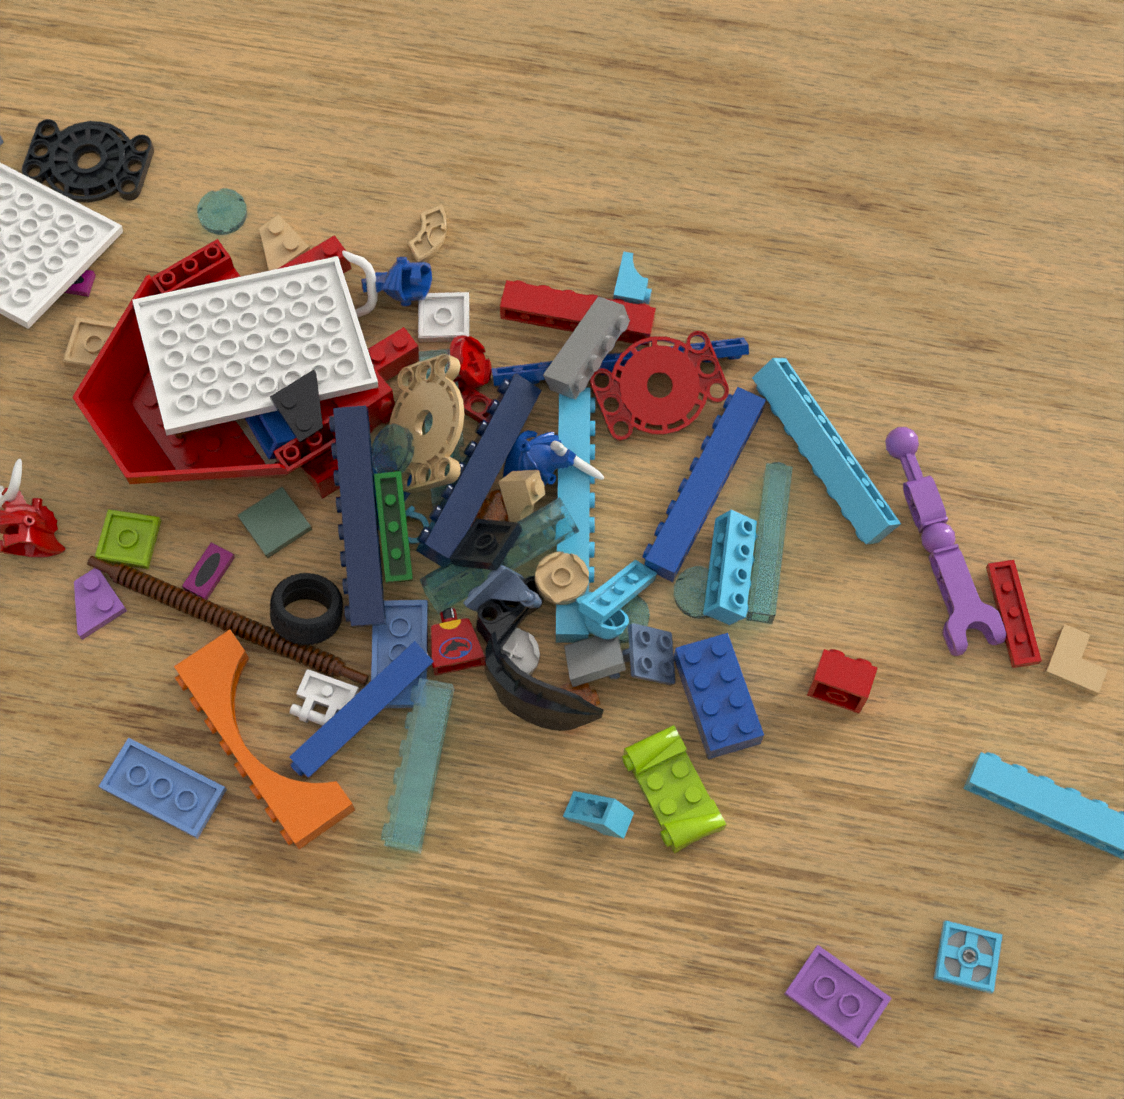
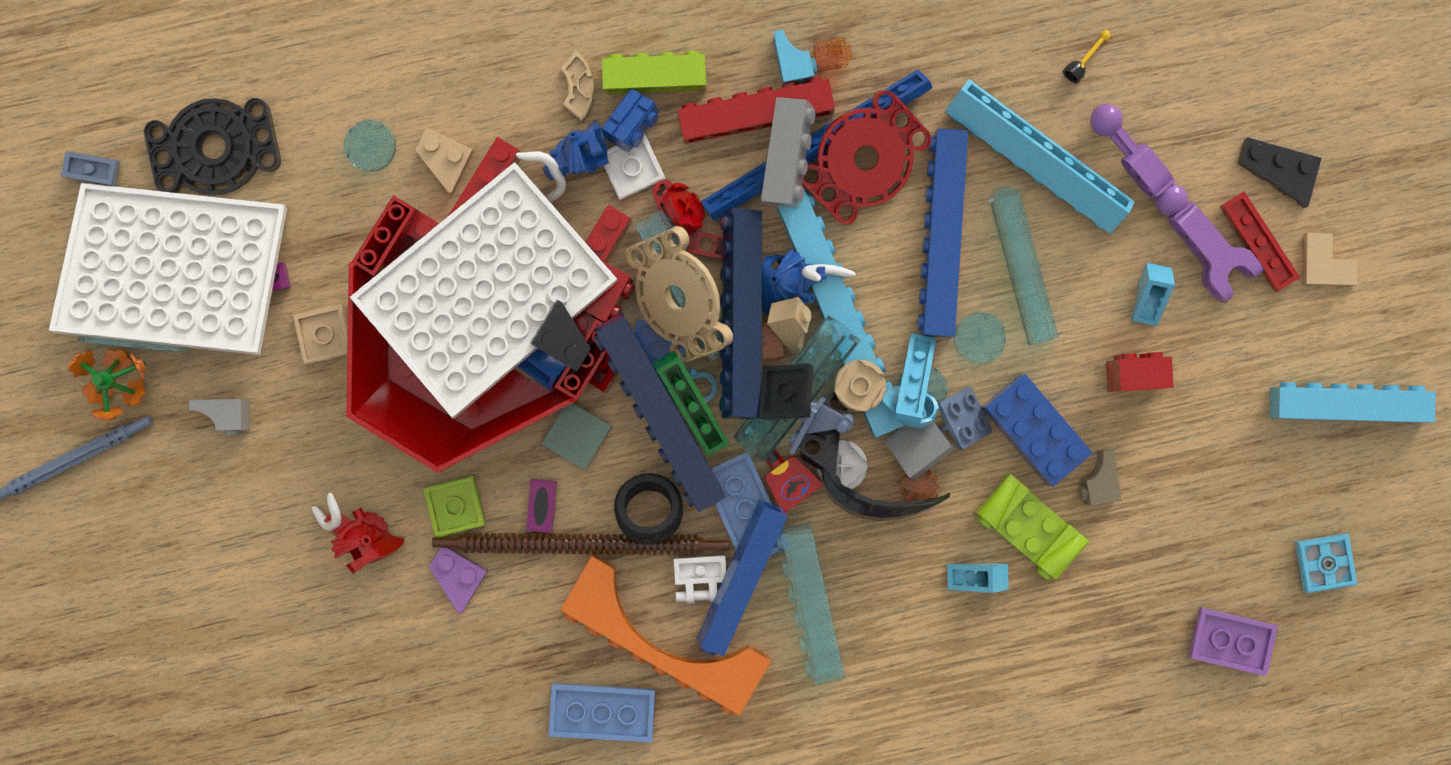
camera: 20 degrees left, 20 degrees up
(392, 449) = (655, 330): clear light blue tile -> none
(460, 275) = (630, 121): none -> blue brick
(501, 248) = (654, 73): none -> lime brick
(668, 292) = (824, 48): none -> clear orange brick
(730, 567) = (1001, 308): medium azure brick -> none
(761, 777) = (1103, 482): none -> dark tan arch
(885, 617) = (1153, 294): none -> medium azure arch
(891, 394) = (1076, 70): none -> hinge
(1062, 557) = (1284, 168): none -> black wing

